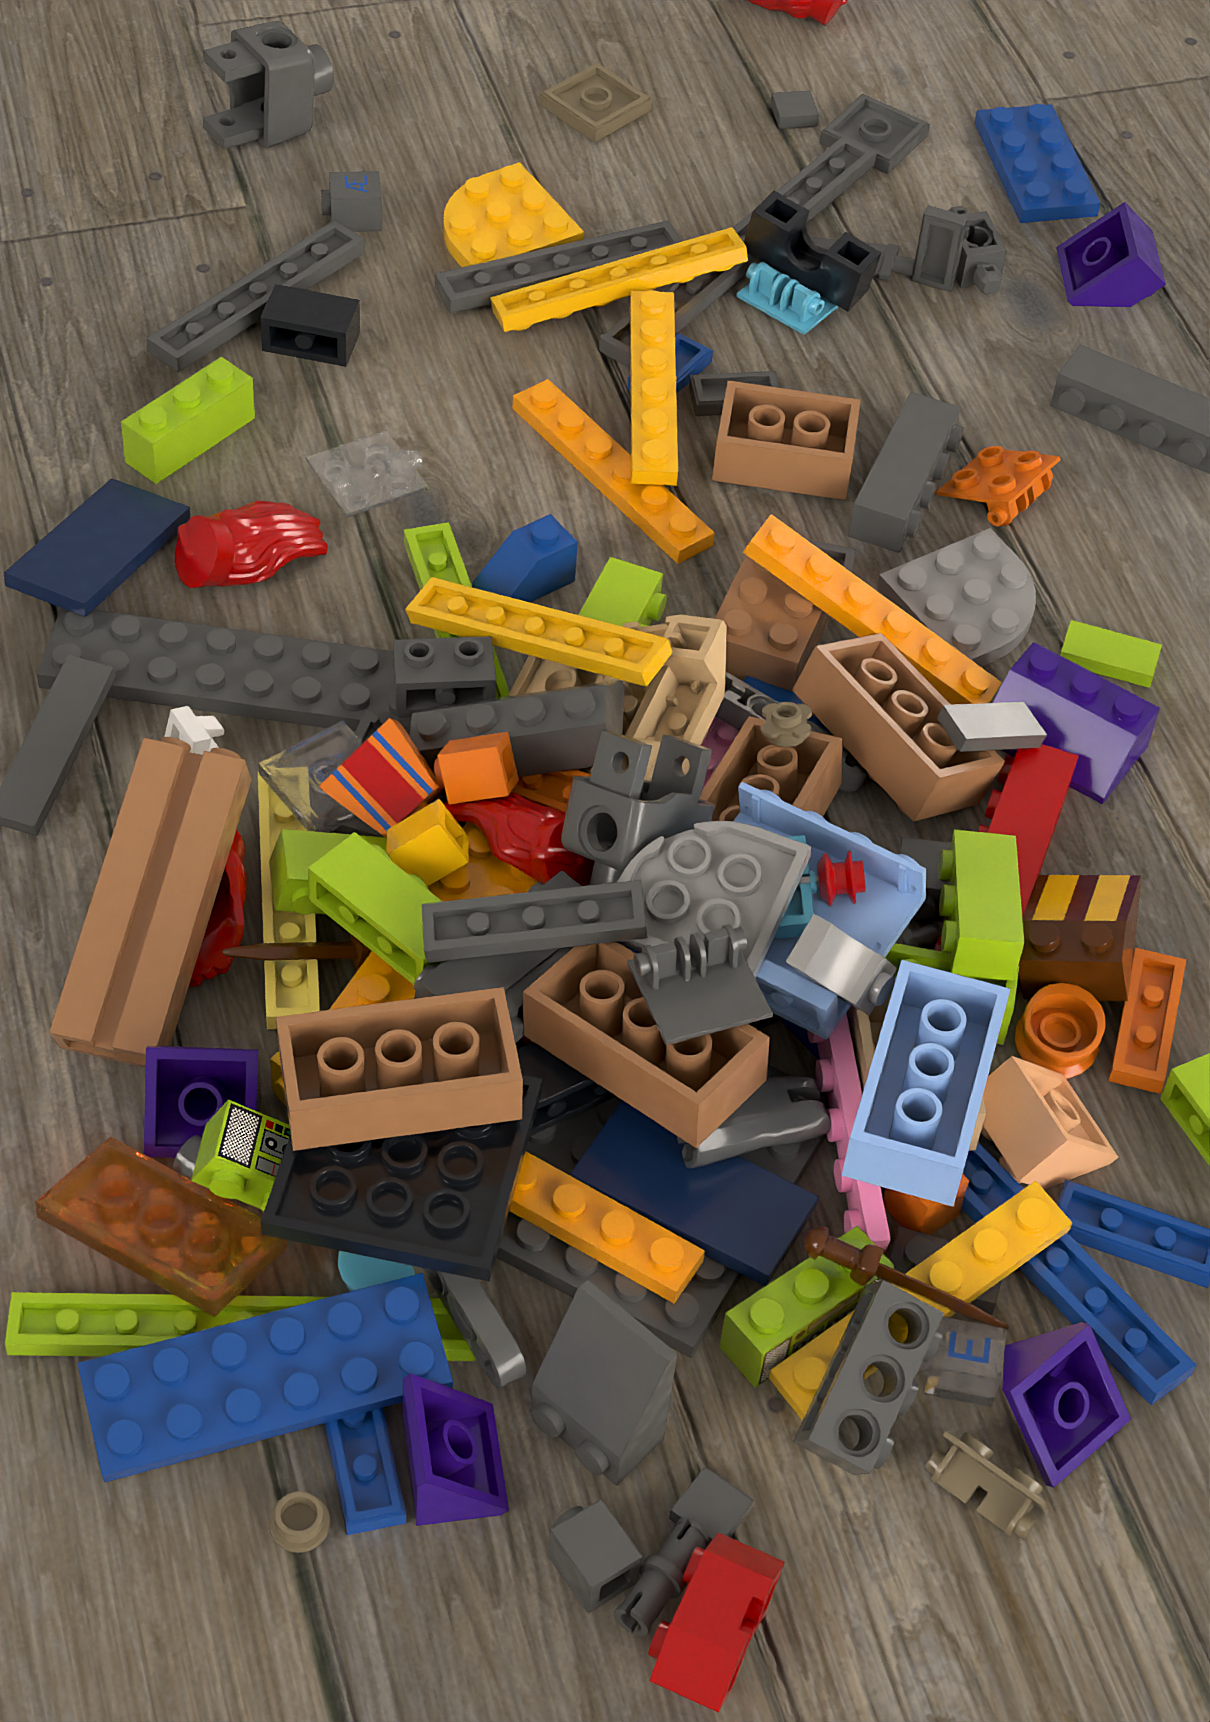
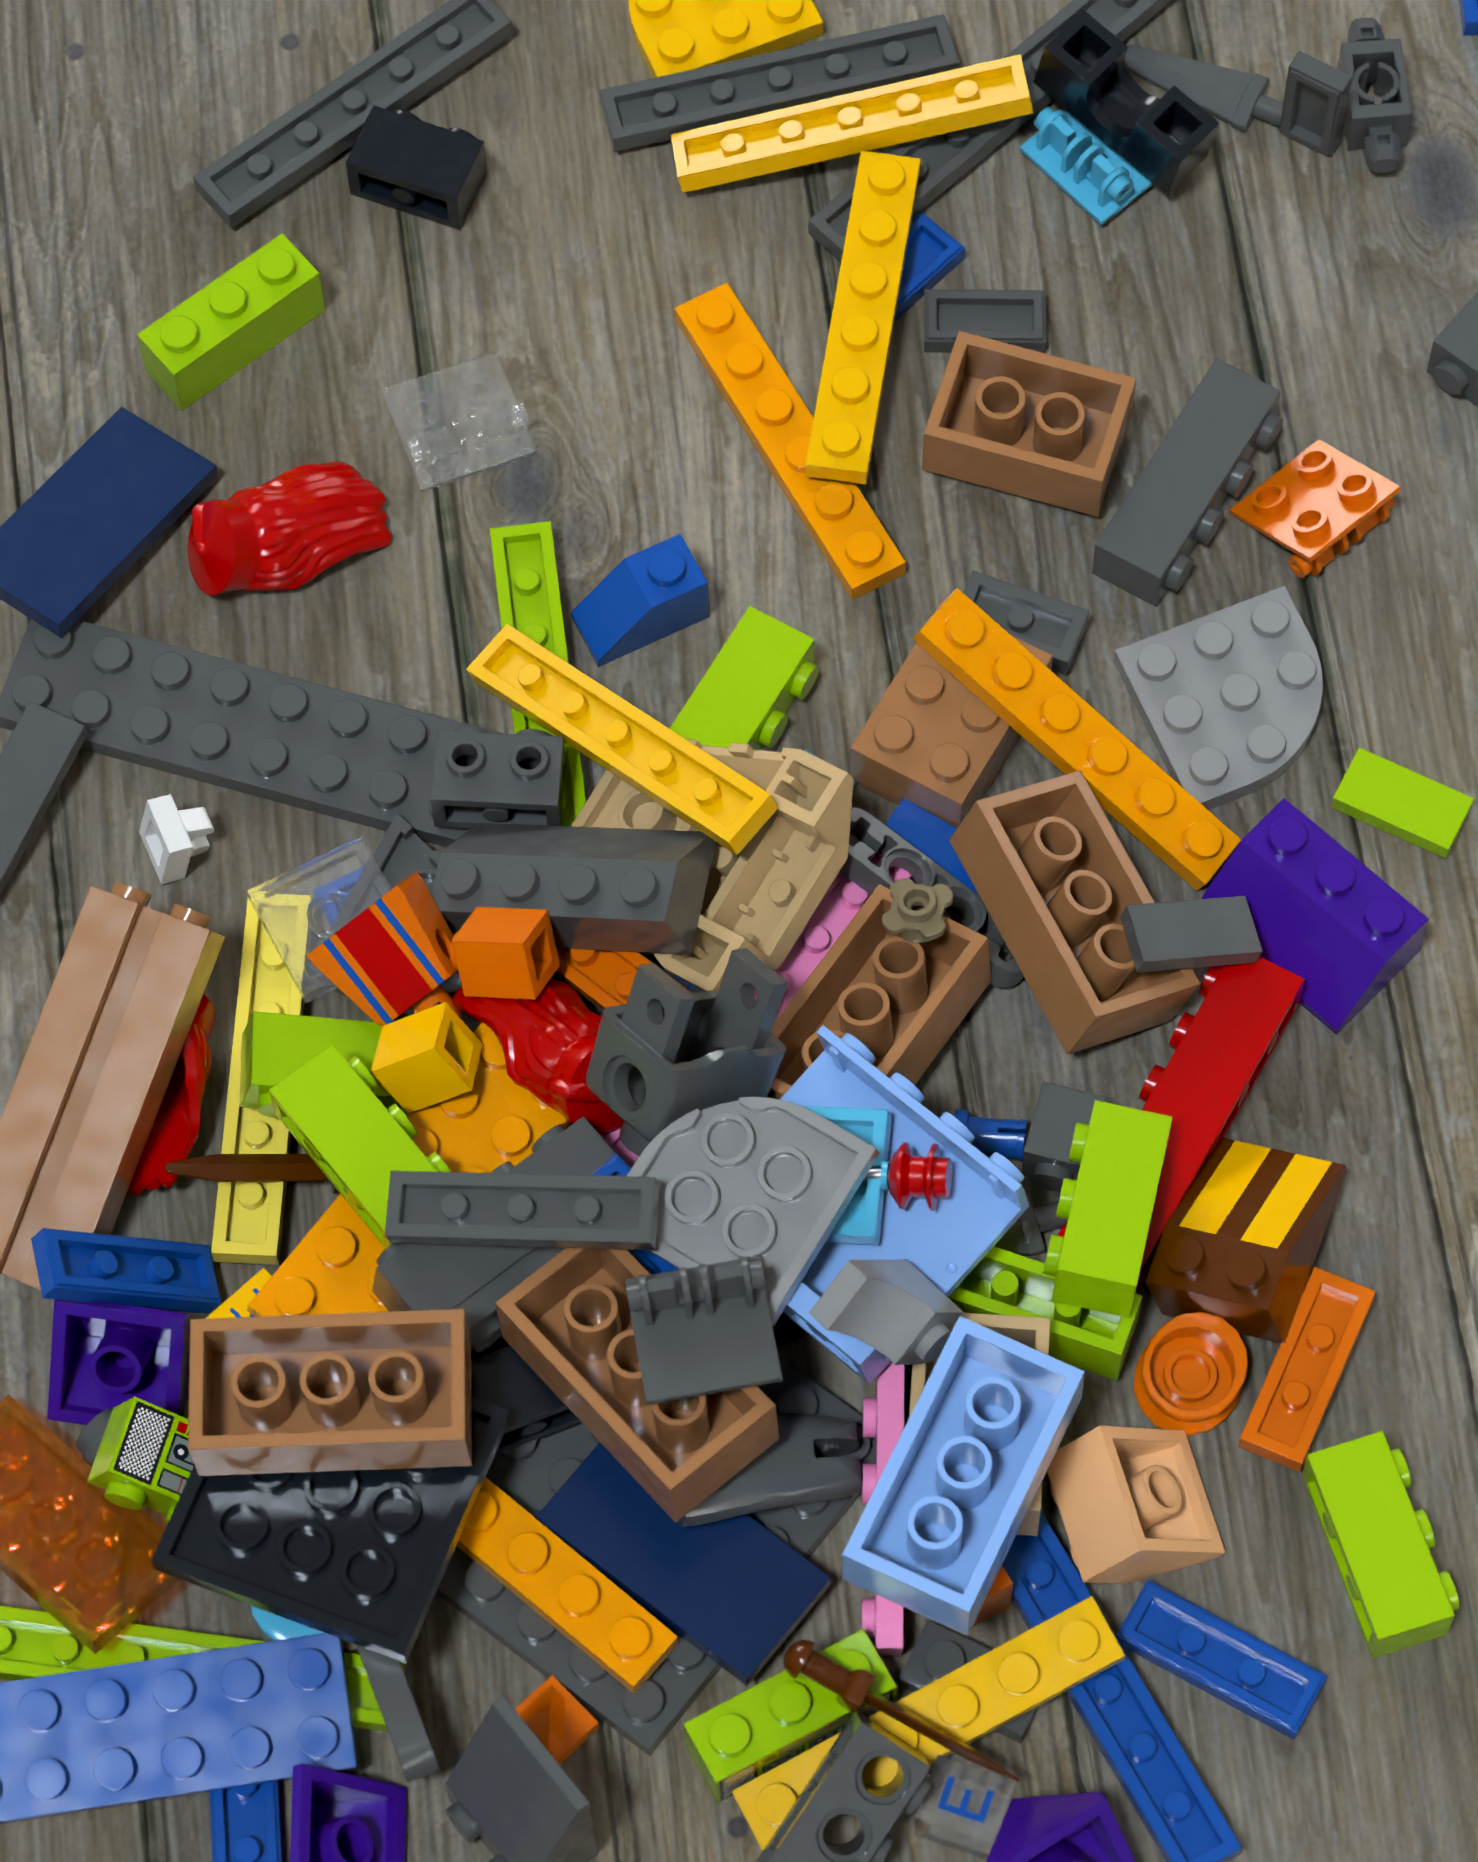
camera: 15 degrees right, 15 degrees up
(190, 1023) = (125, 1271): none -> blue tile

